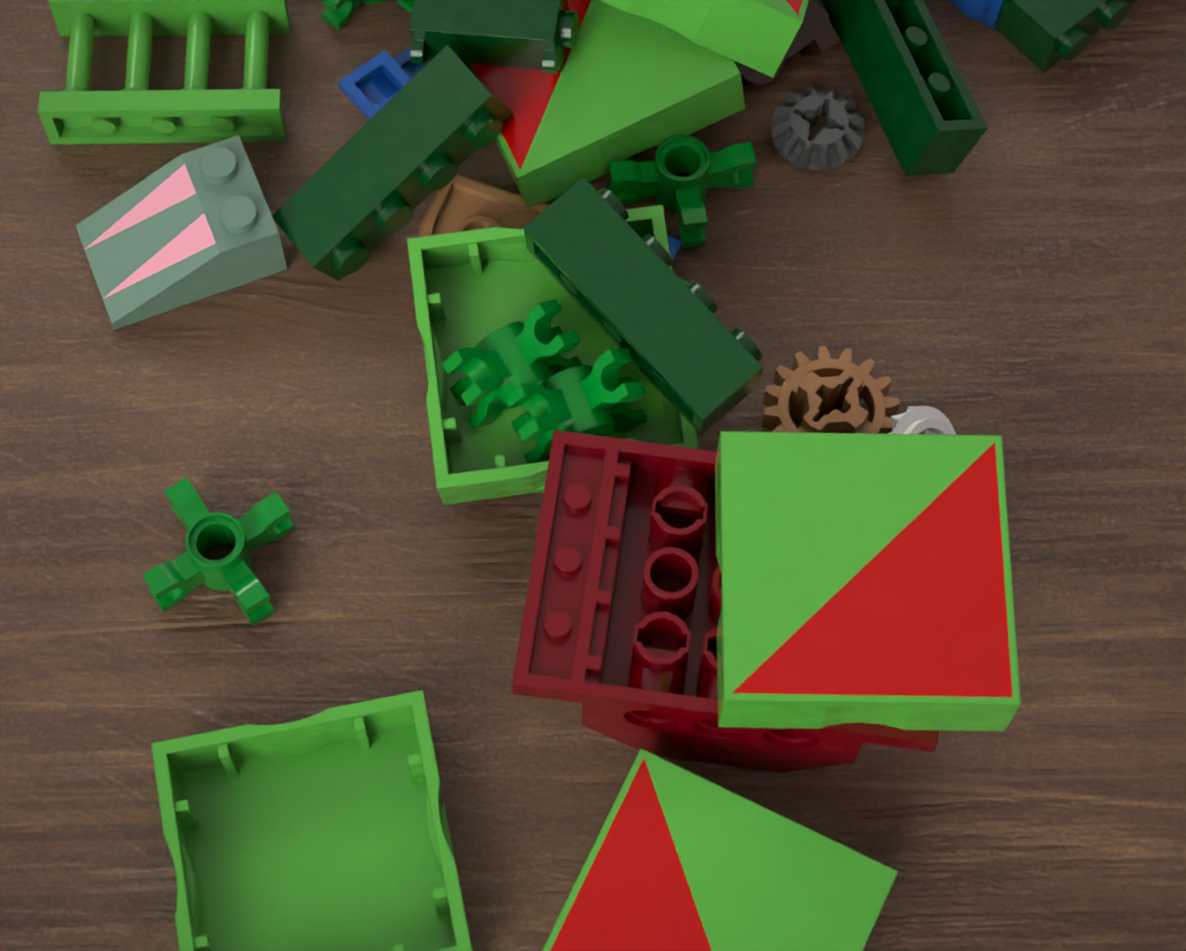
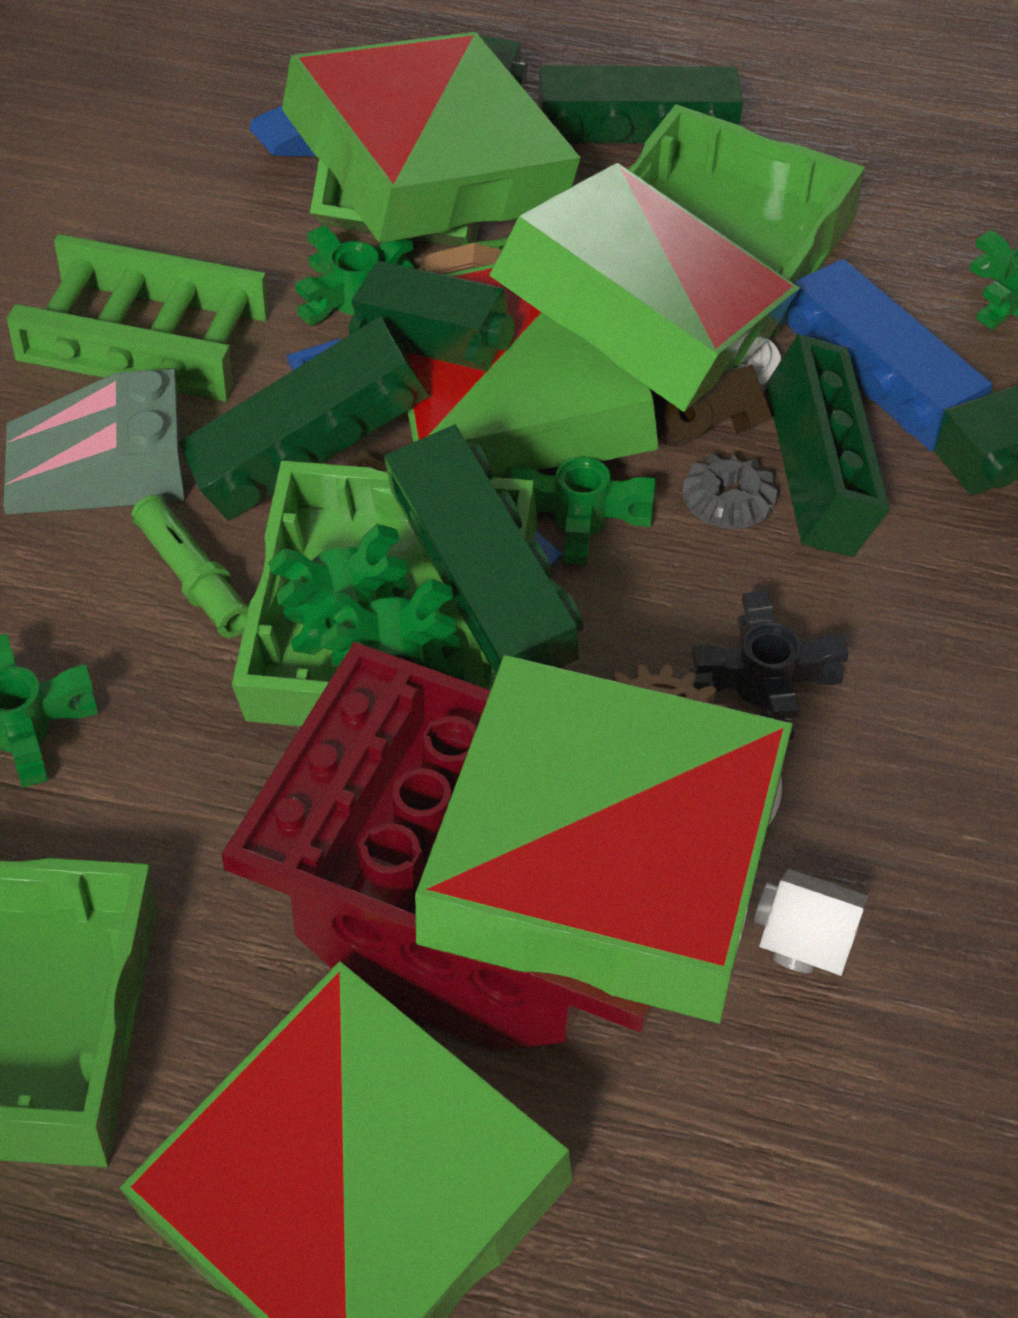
camera: 15 degrees right, 15 degrees down
(346, 360) = (203, 580): none -> bright green pin
(919, 299) = (769, 661): none -> black pin
(1041, 578) = (809, 922): none -> brick

